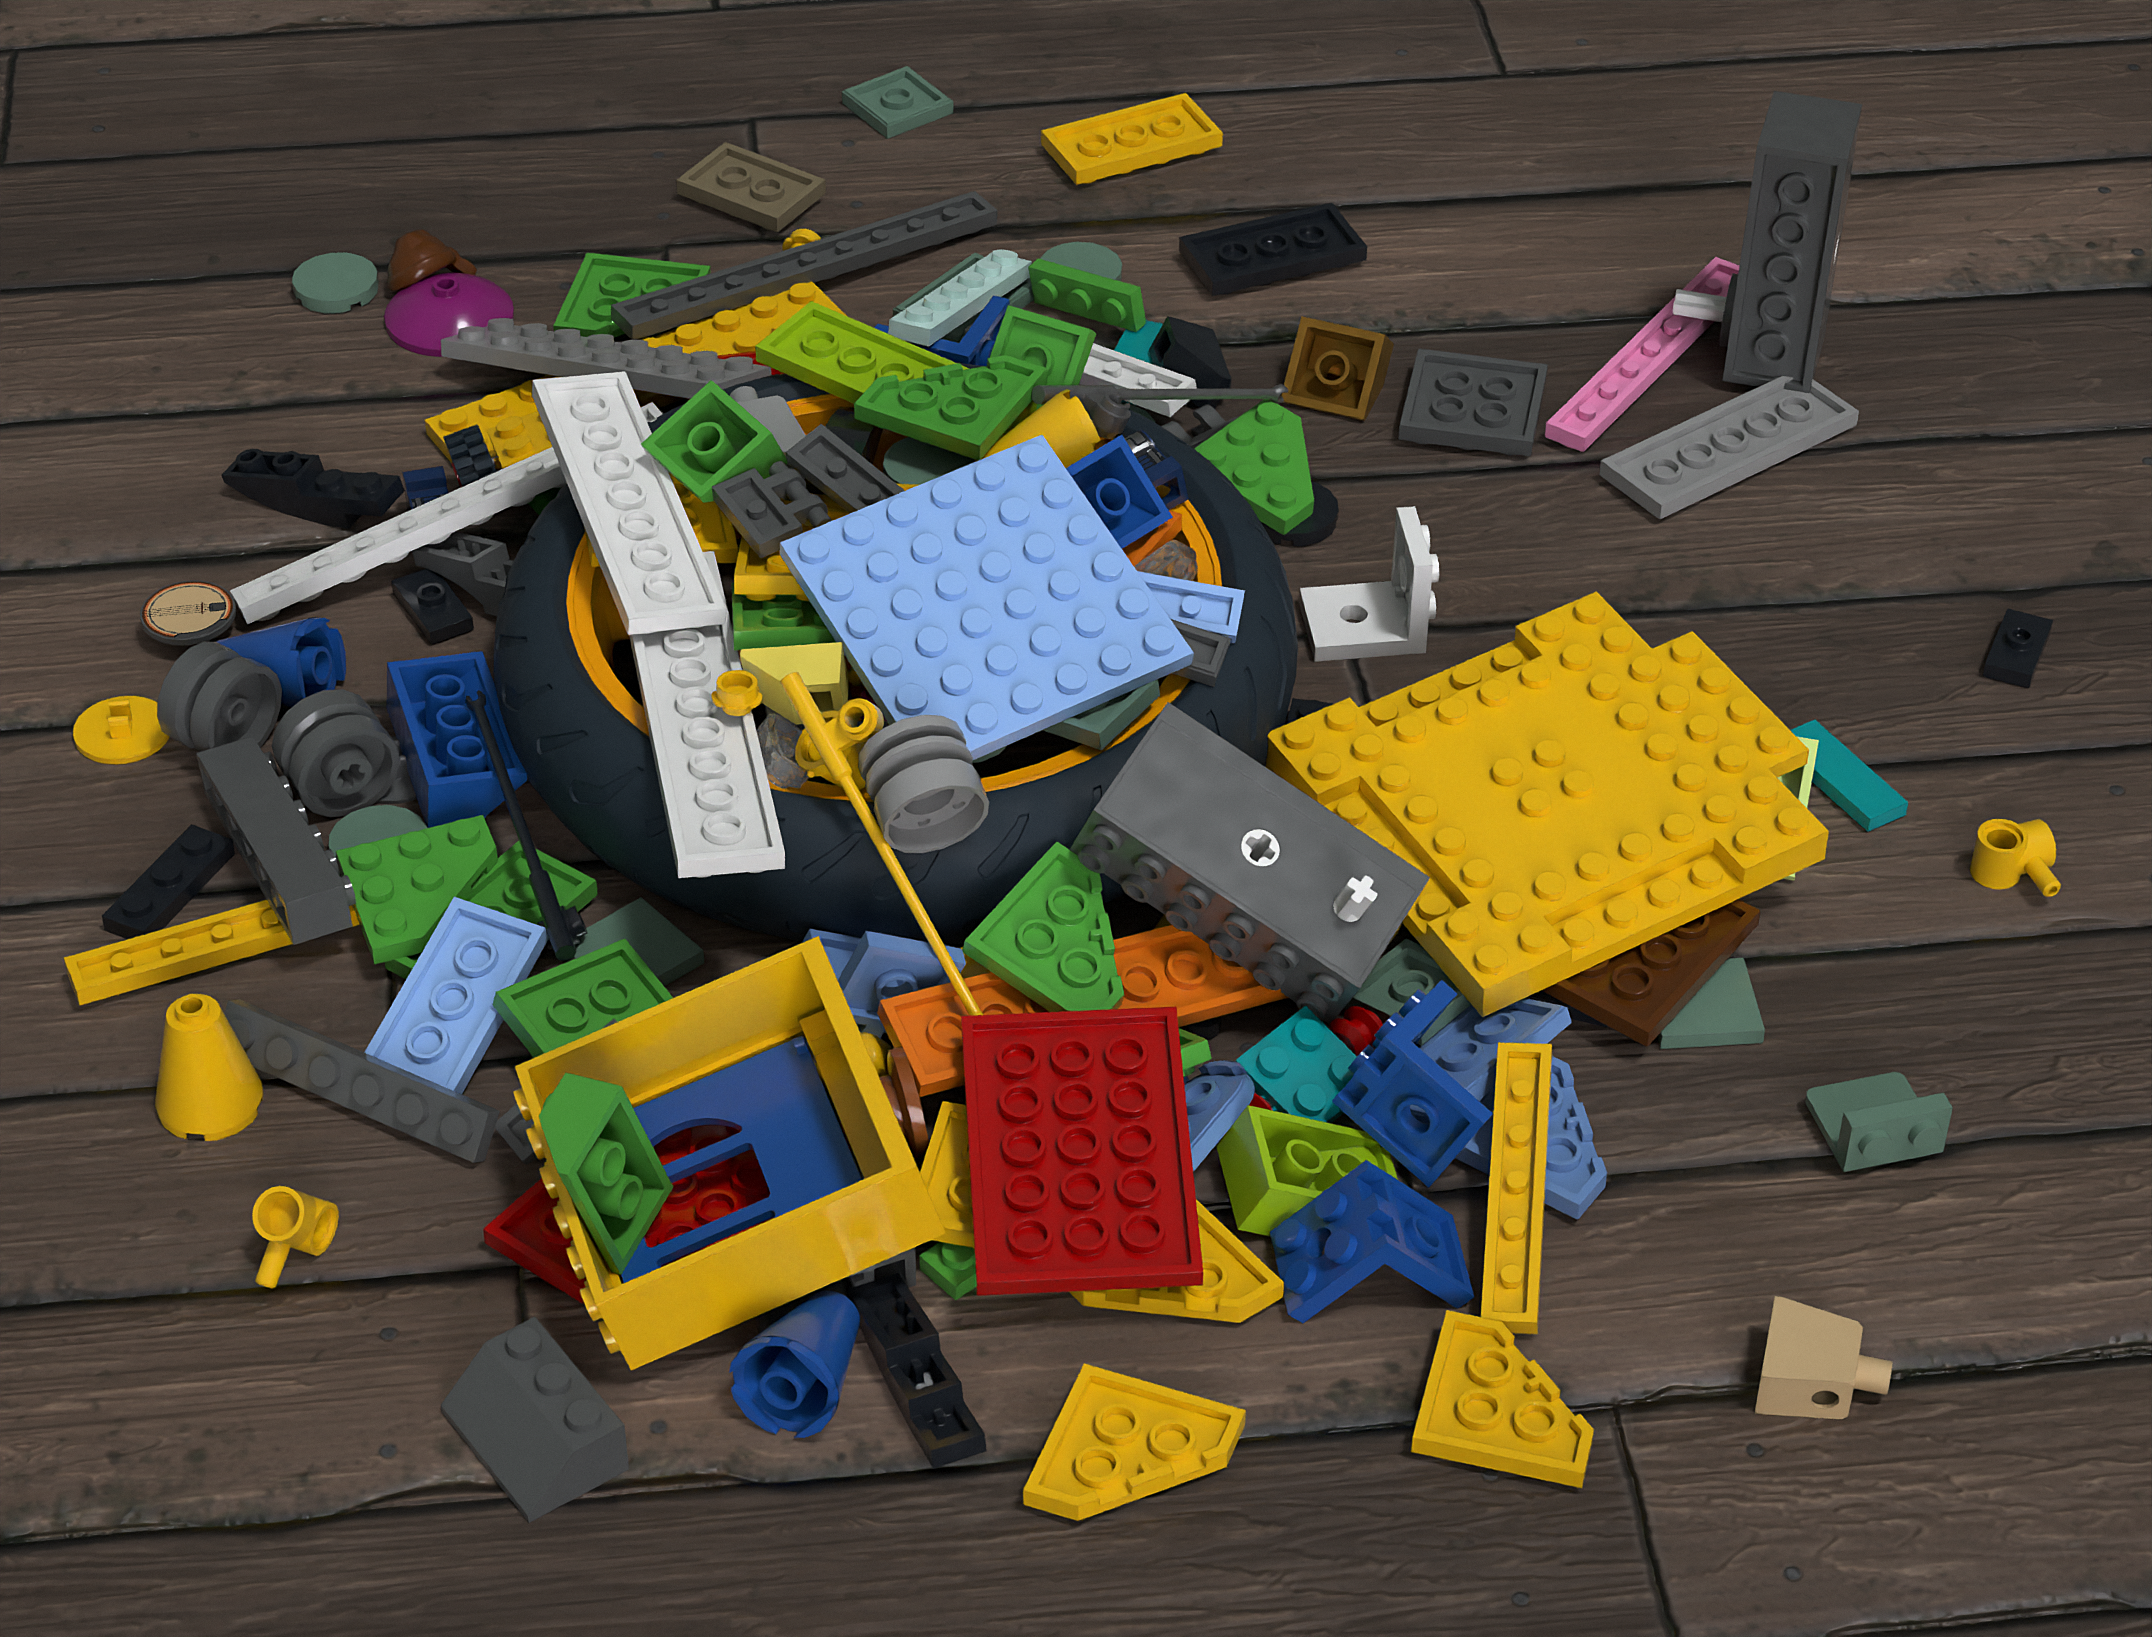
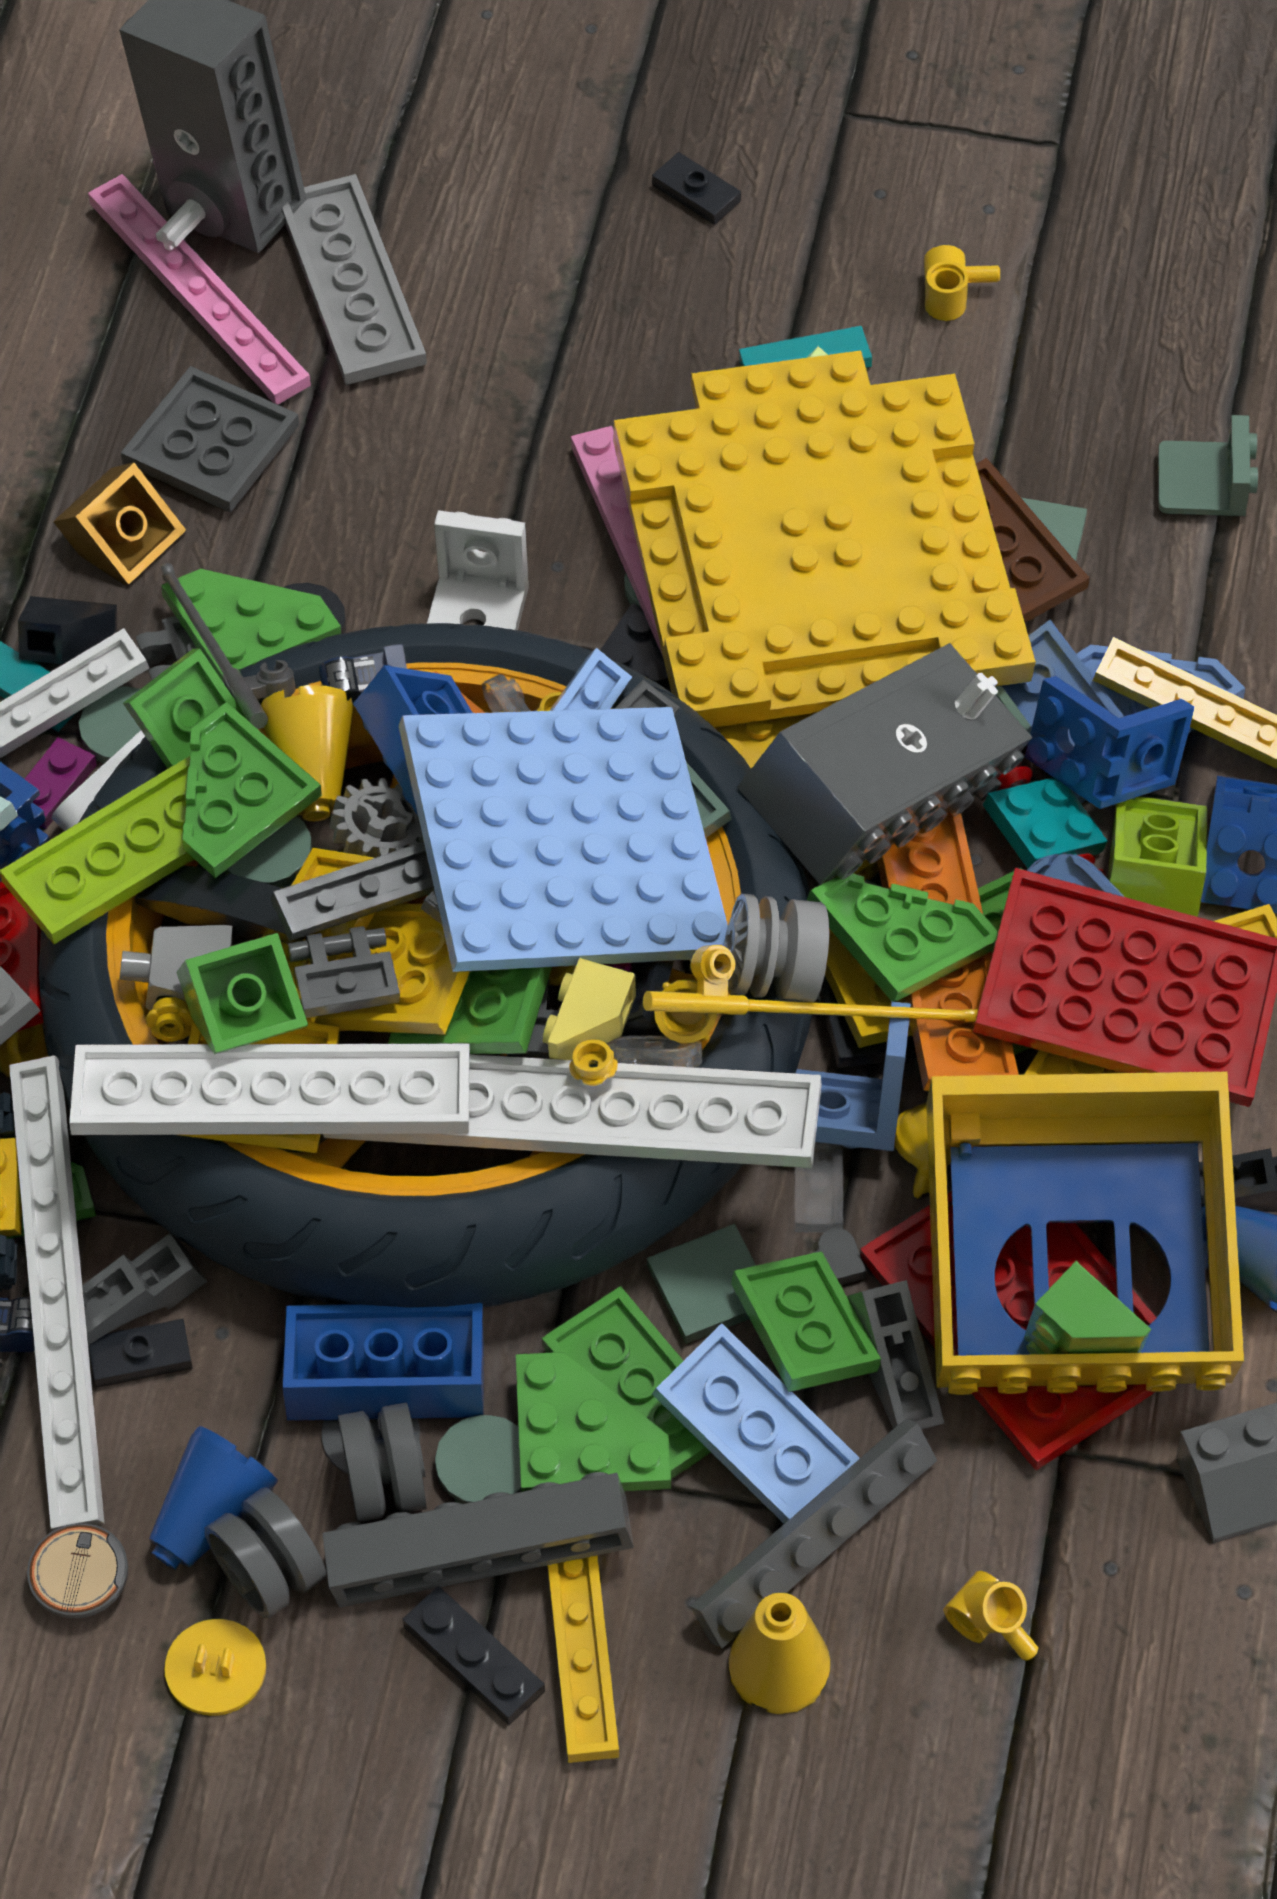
camera: 70 degrees left, 15 degrees up
(562, 924) = (680, 1319): black piece -> none

